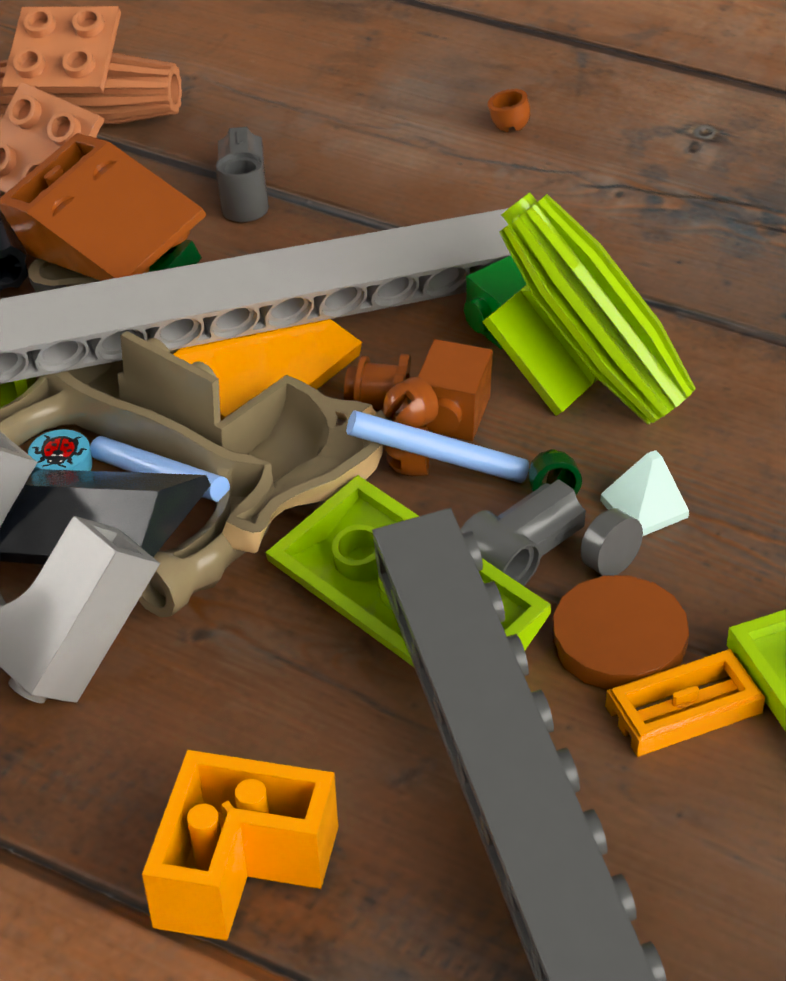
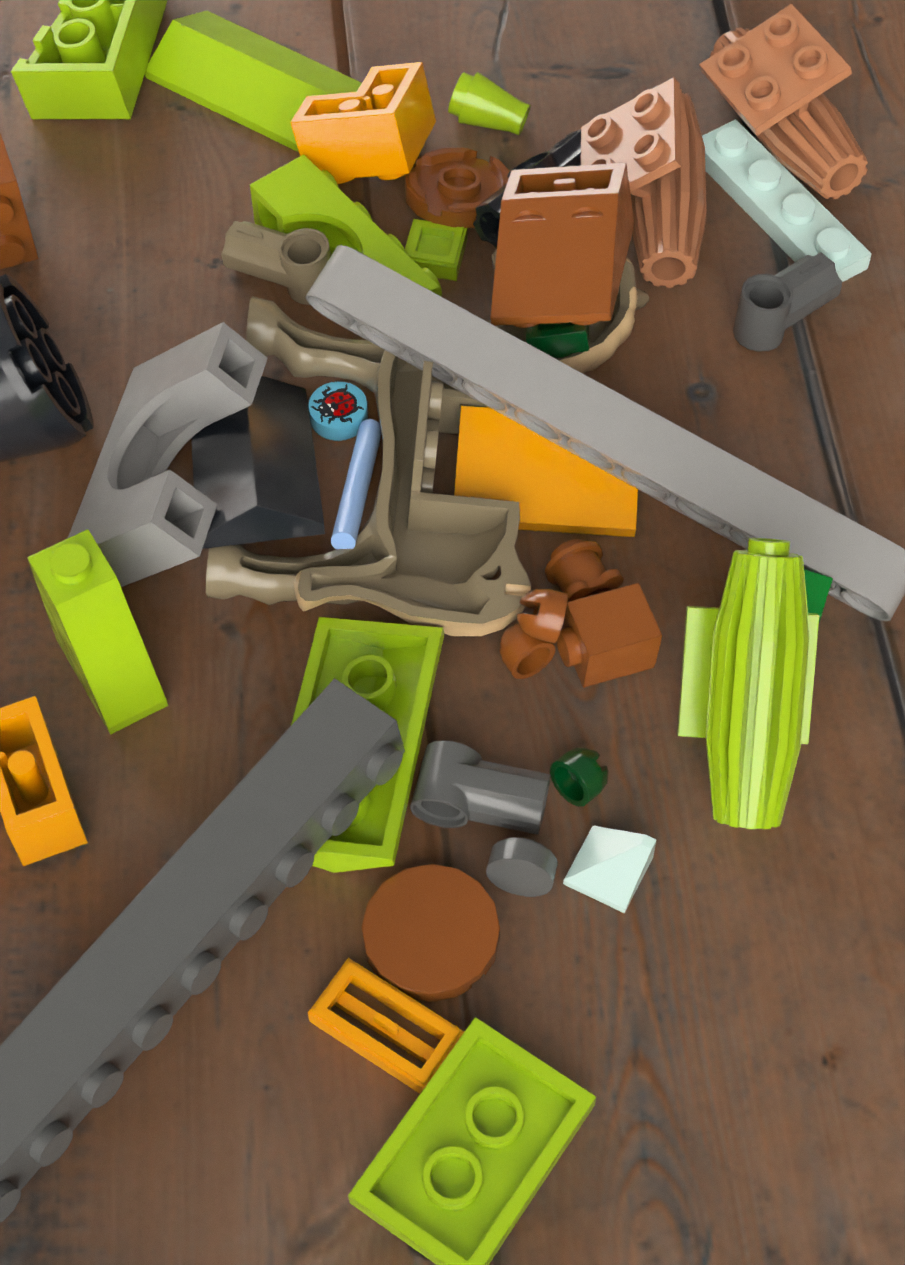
camera: 55 degrees right, 15 degrees up
(145, 686) = (97, 630): none -> lime slope
(169, 138) = (779, 201): none -> light aqua plate
(437, 446) = (522, 666): light blue bar -> none

